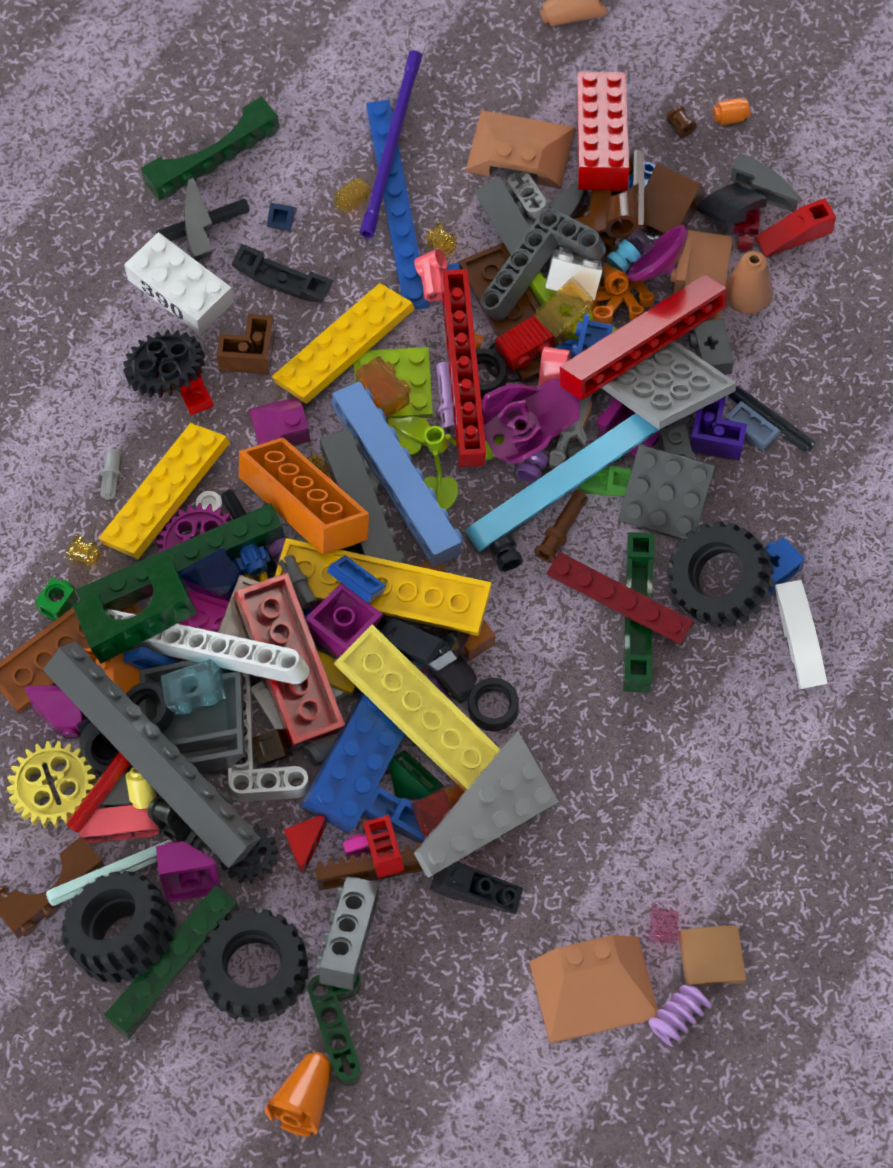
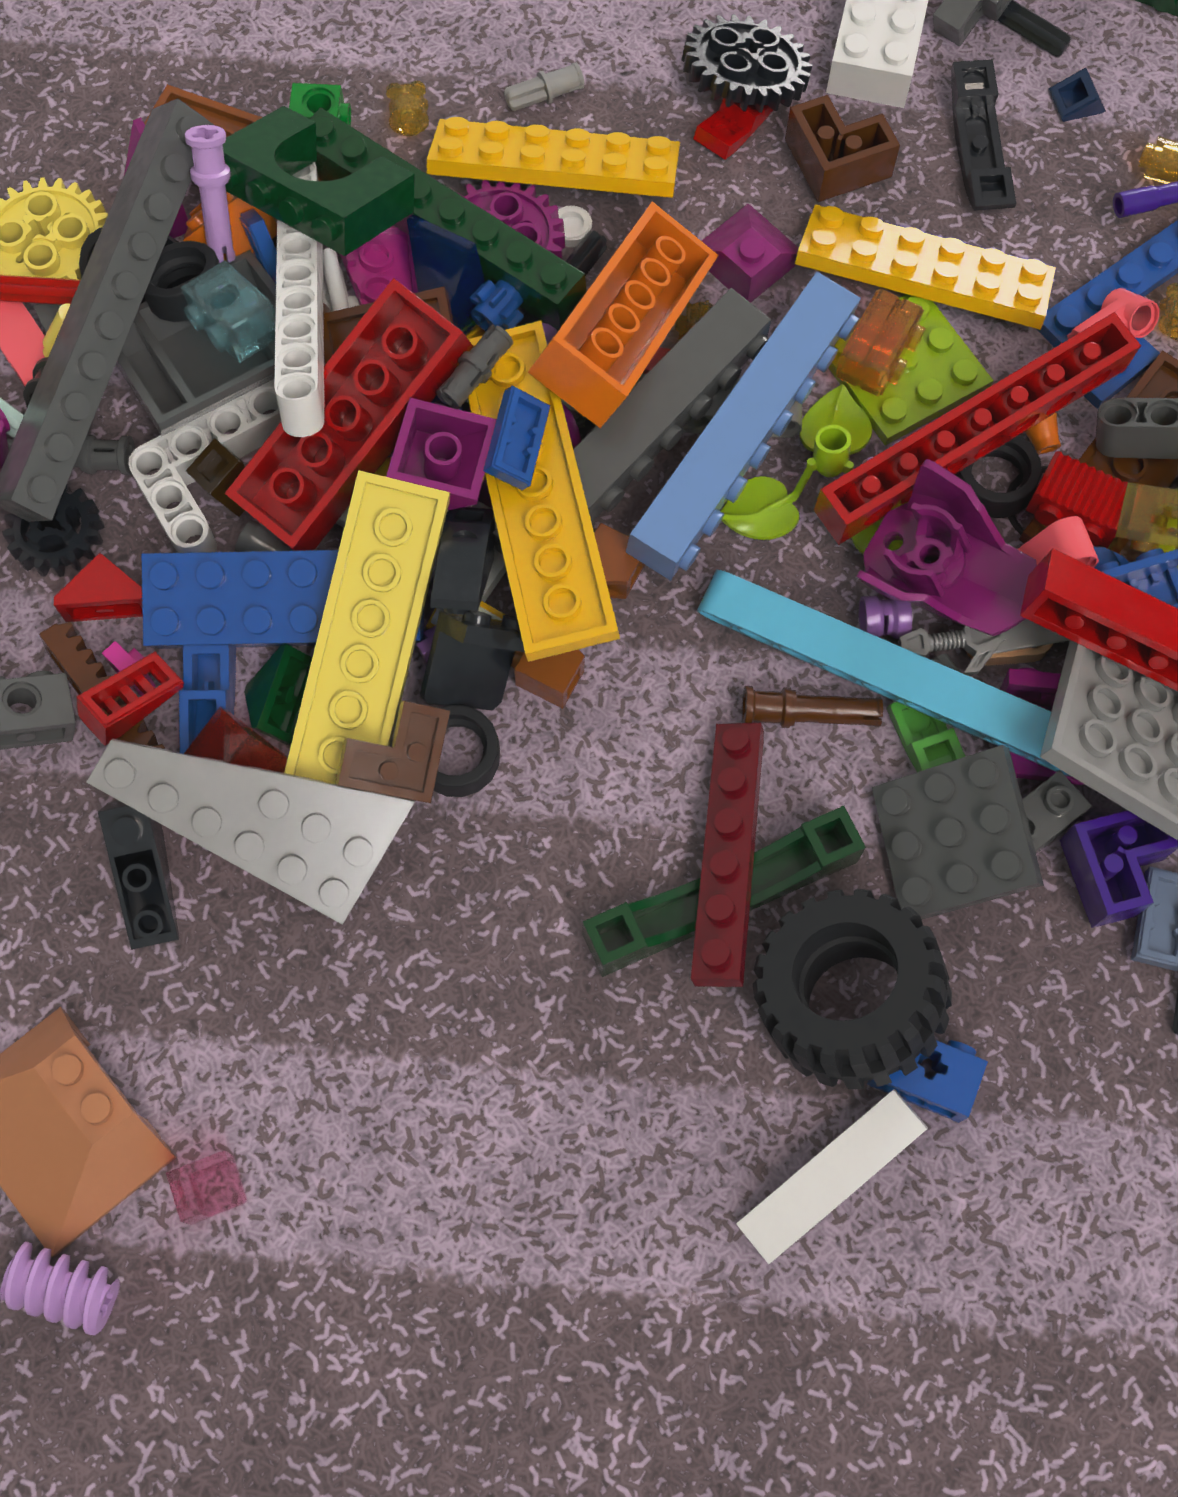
camera: 60 degrees right, 5 degrees up
(109, 657) = (211, 177): none -> lavender pin
(497, 724) = (406, 767): none -> reddish brown plate
(506, 553) = (715, 649): black wheel -> none
(712, 956) = (187, 1295): medium nougat slope -> none

